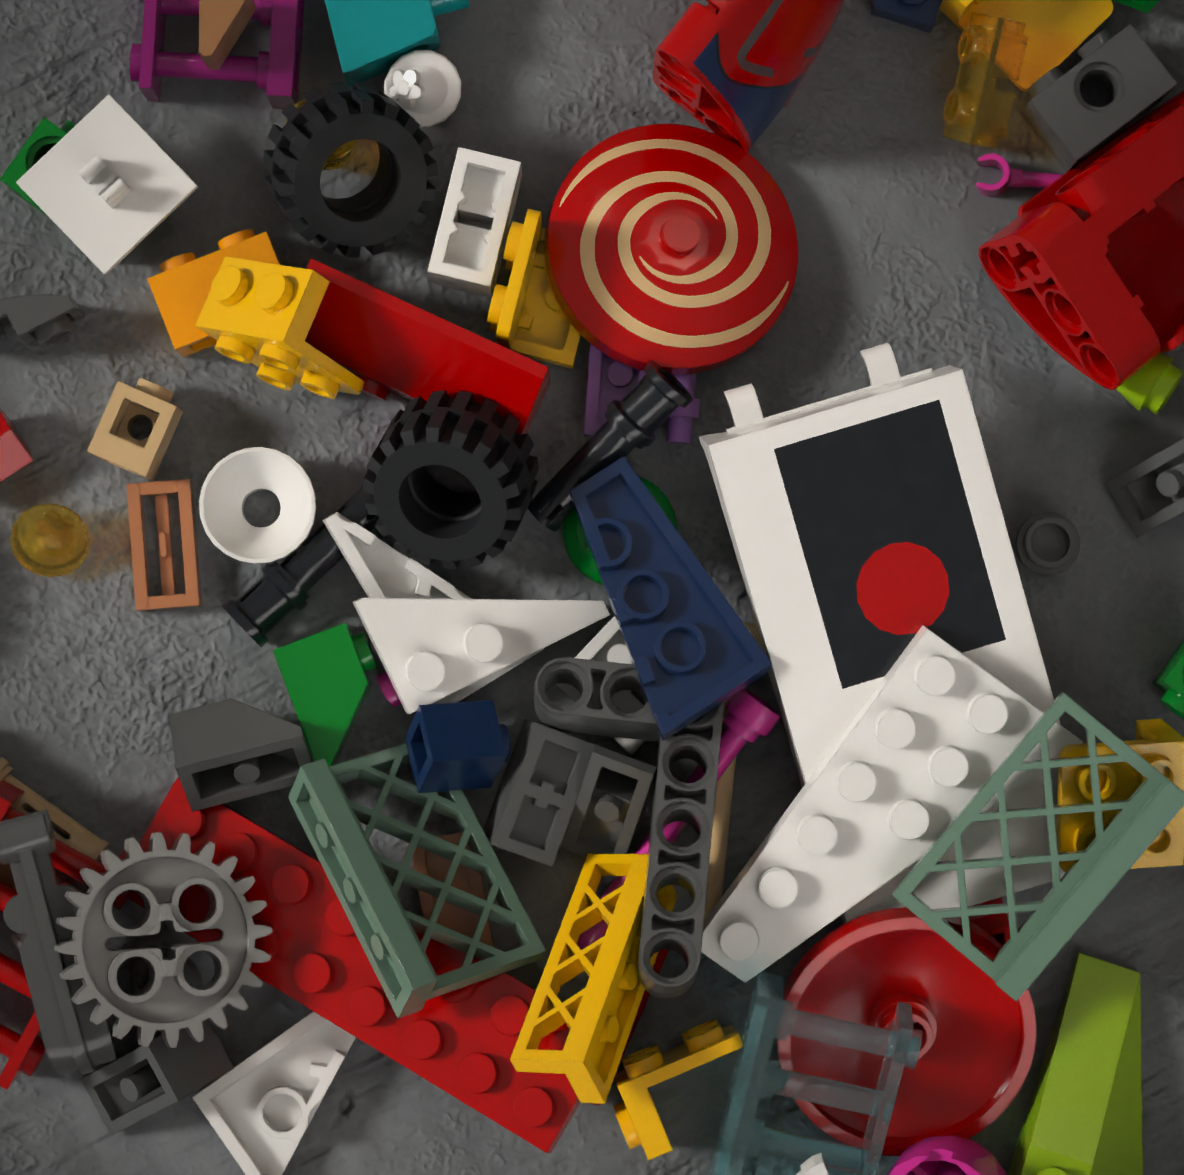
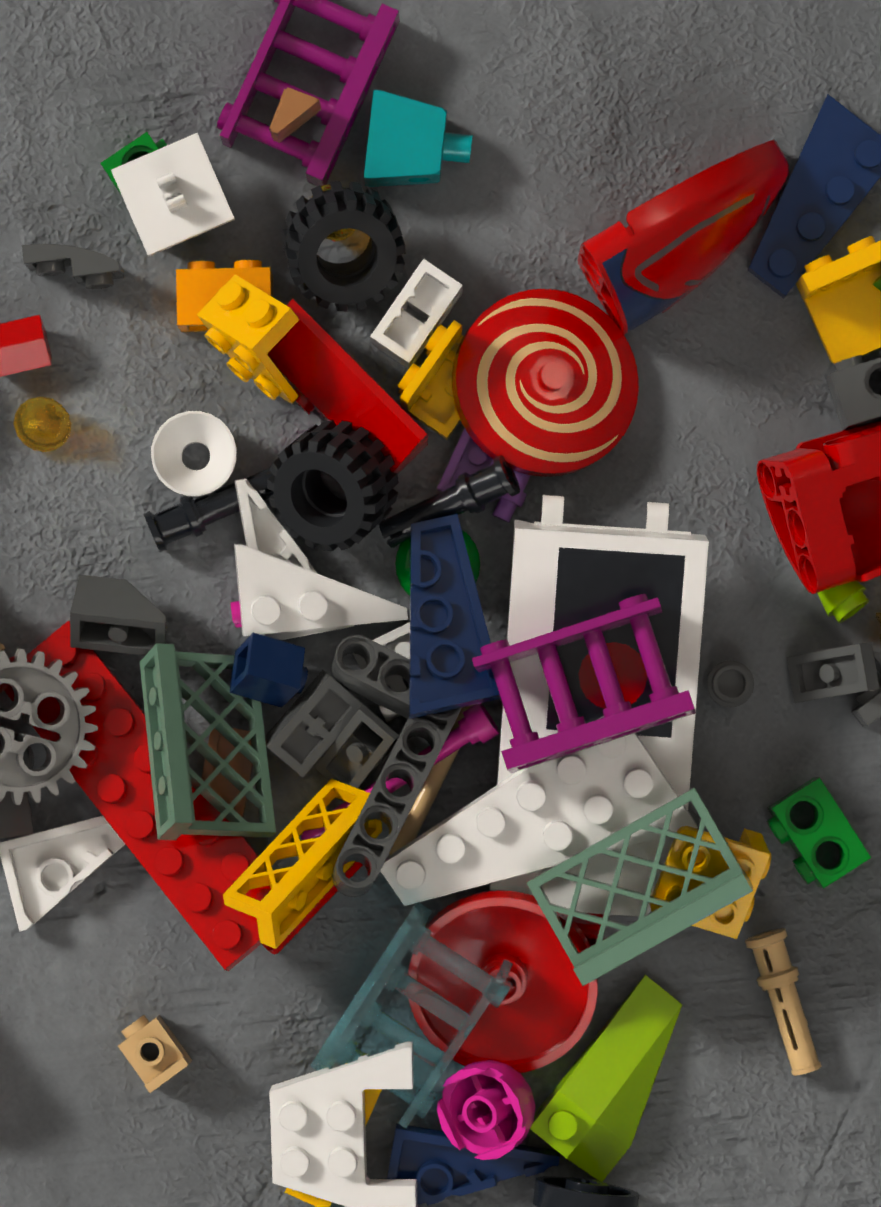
camera: 25 degrees right, 0 degrees up
(113, 436) = (112, 369): tan brick -> none
(139, 550) = (102, 450): nougat tile -> none
(327, 685) = (195, 595): green slope -> none
(424, 86) = (417, 206): white hat -> none
(649, 1066) = (298, 969): yellow bracket -> none
(933, 635) = (572, 730): none -> magenta fence
(986, 50) = (816, 326): clear yellow hinge -> none
(1011, 177) = (802, 420): dark pink hand -> none

